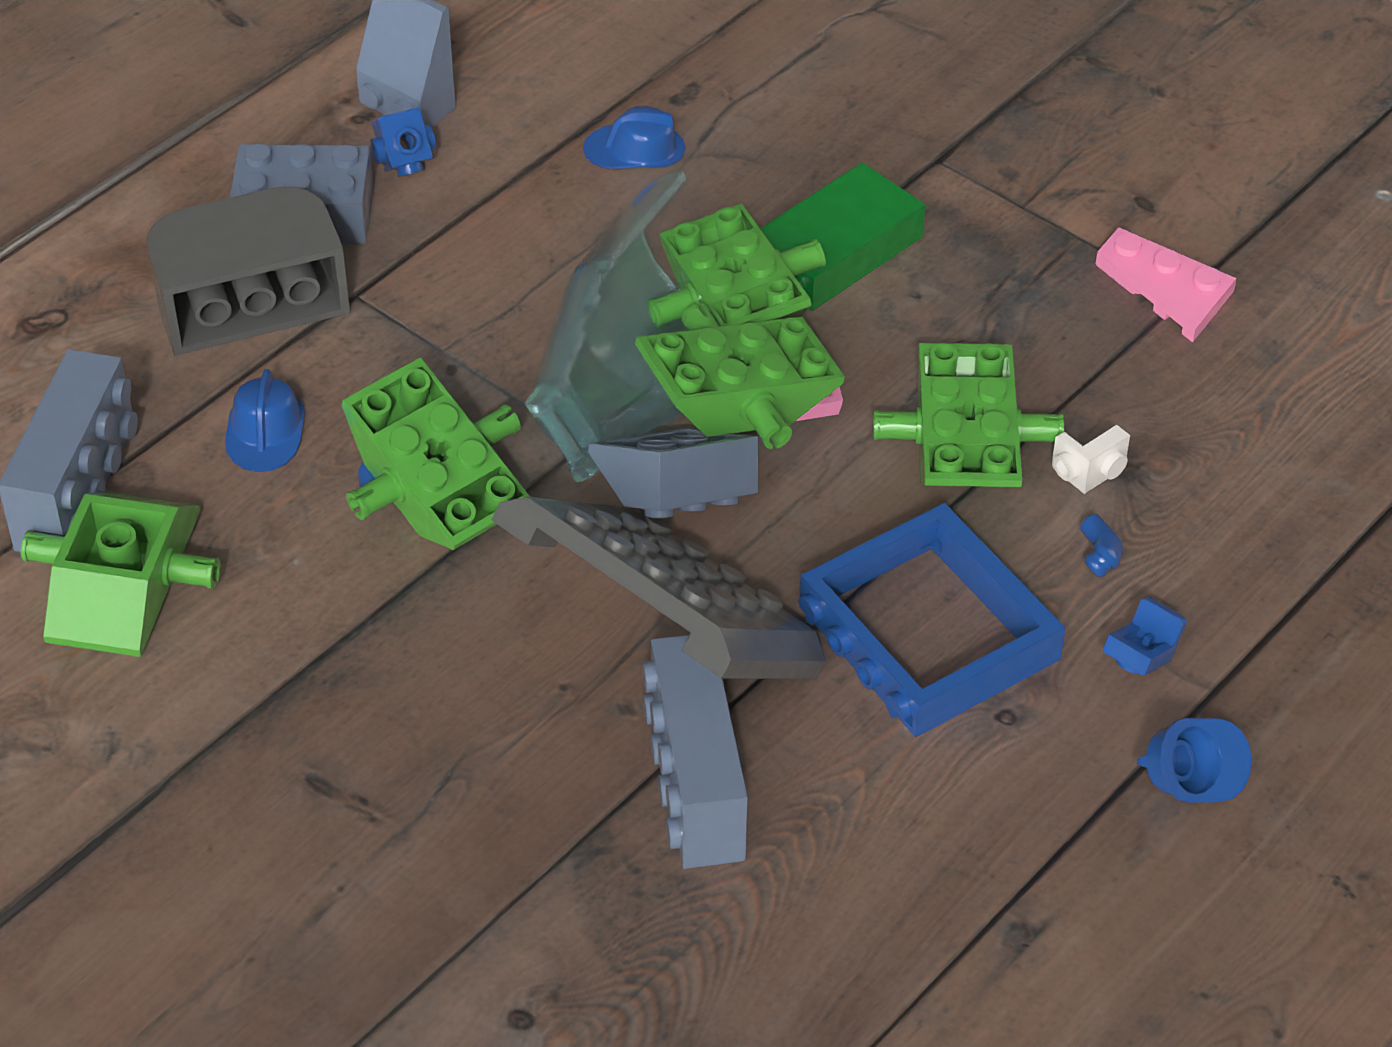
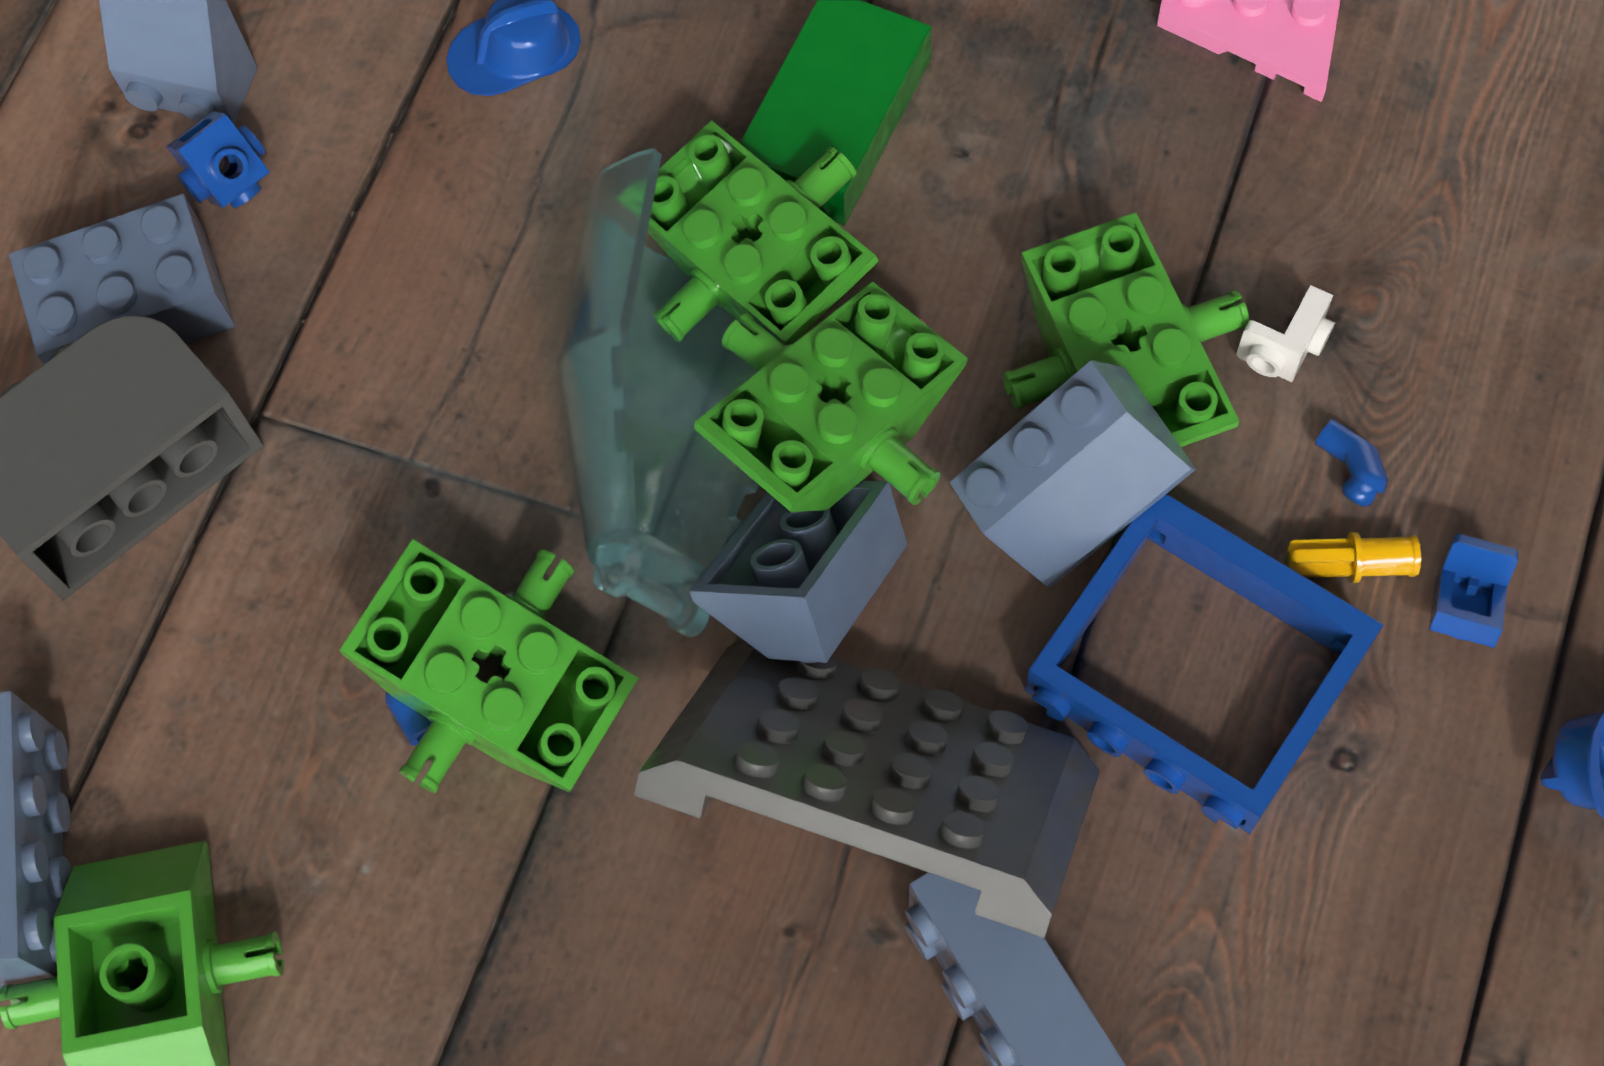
camera: 15 degrees left, 20 degrees up
(264, 424) = (233, 675): blue piece -> none
(887, 469) = (1073, 472): none -> sand blue slope
(1074, 598) = (1355, 557): none -> yellow axle

